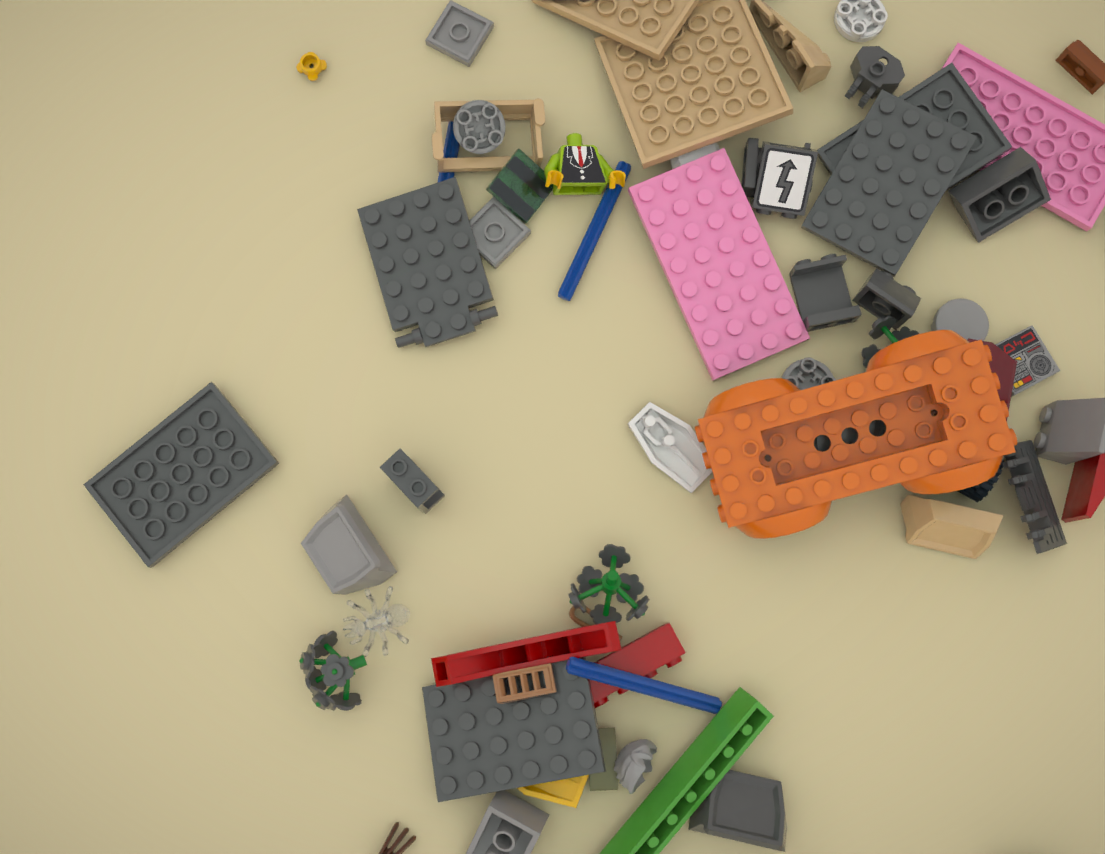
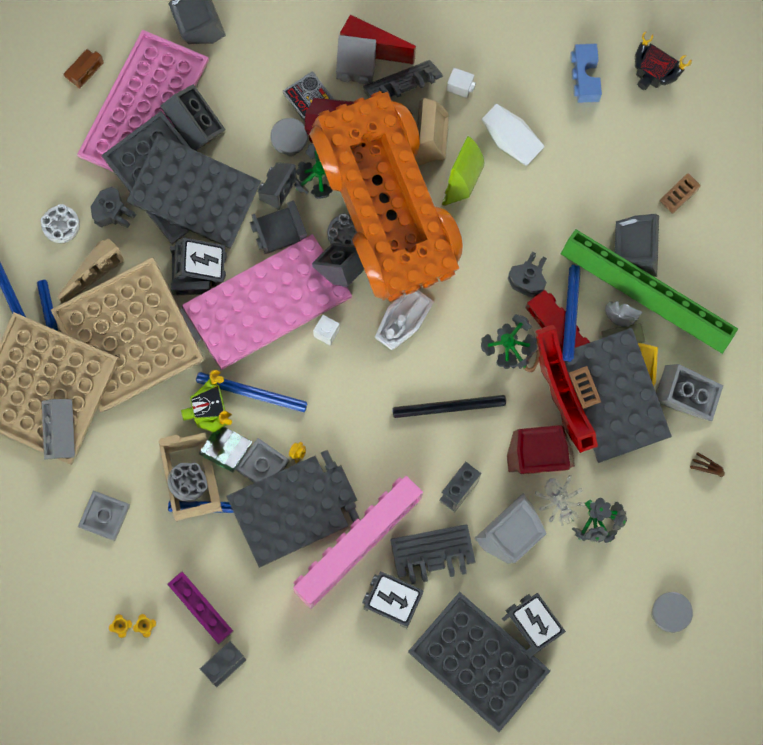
camera: 105 degrees left, 5 degrees down
(194, 753) = (672, 612): none -> light grey tile
(211, 554) = (535, 622): none -> panel
(234, 144) = (223, 664): none -> dark grey panel
(281, 371) = (393, 599): none -> panel
(316, 31) = (114, 627): none -> yellow plate
(320, 133) = (200, 607): none -> magenta plate
(342, 436) = (433, 549): none -> dark grey hinge
(359, 329) = (358, 542): none -> bright pink brick
(448, 606) = (540, 450): none -> dark red helmet
(502, 277) = (297, 451): none -> yellow plate
(536, 490) = (449, 406): none -> black axle
(666, 336) = (326, 330): none -> white brick
(713, 634) = (528, 277): none -> dark grey hinge
(758, 359) = (339, 264): none -> dark grey slope
(883, 564) = (464, 172): none -> lime wedge
(936, 647) = (512, 134): none -> white piece
(1025, 583) = (461, 83): none -> white brick
(1053, 781) = (586, 88): none -> medium blue arch

